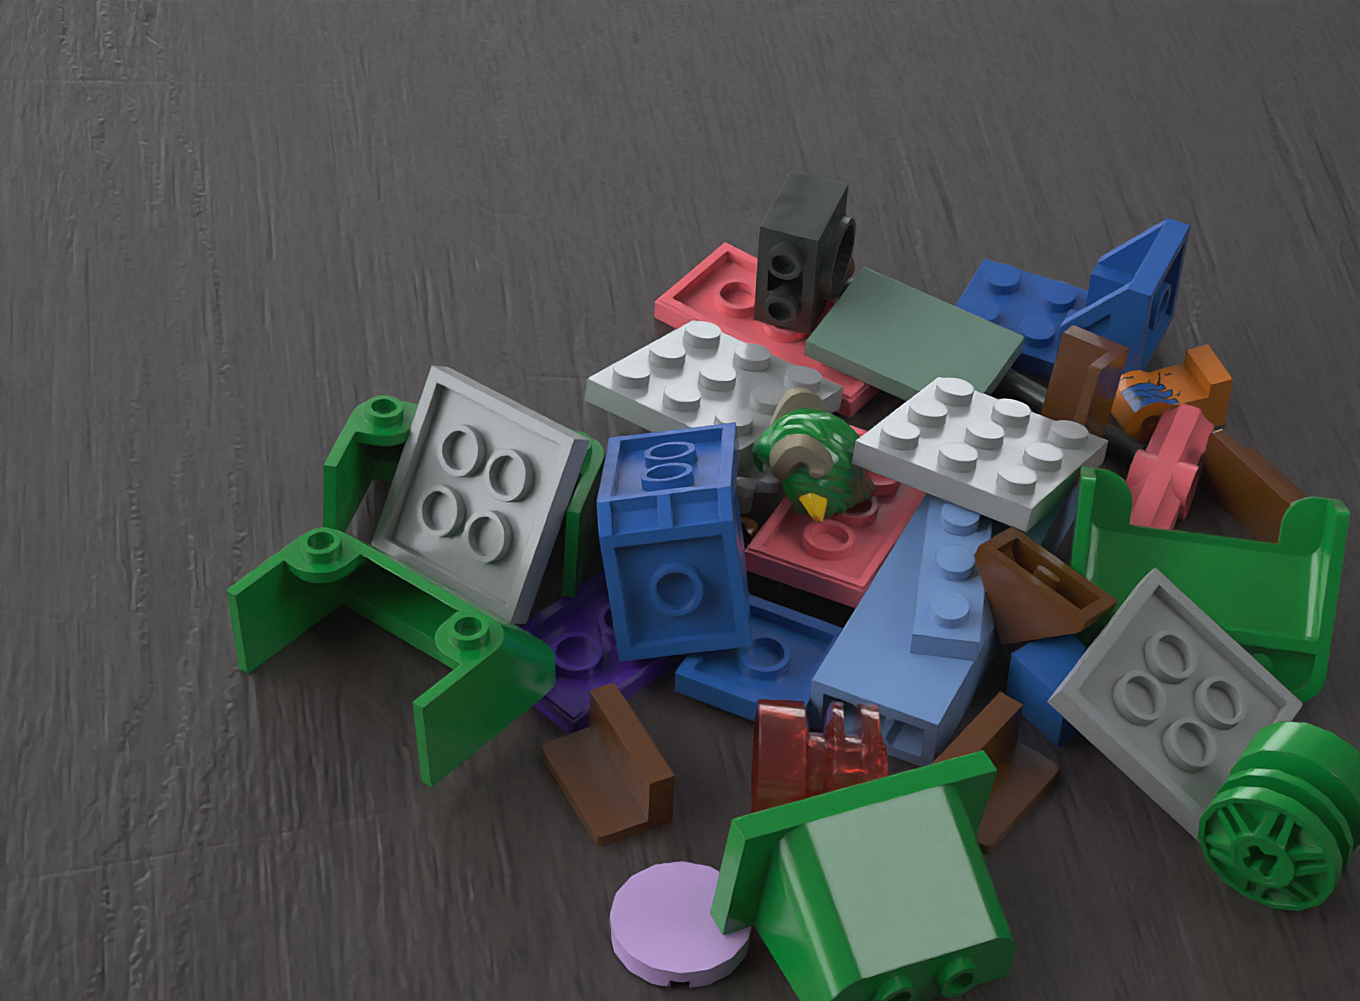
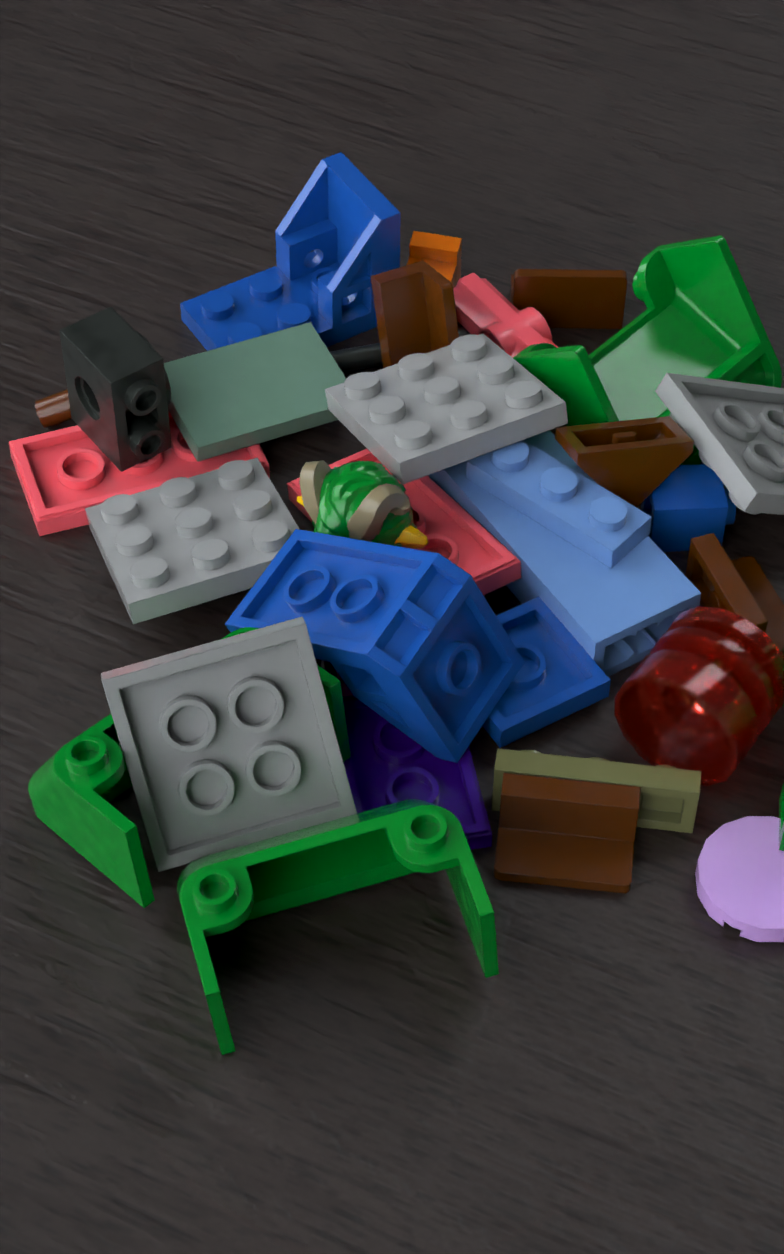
camera: 55 degrees left, 5 degrees up
(698, 806) = (666, 793): none -> olive plate

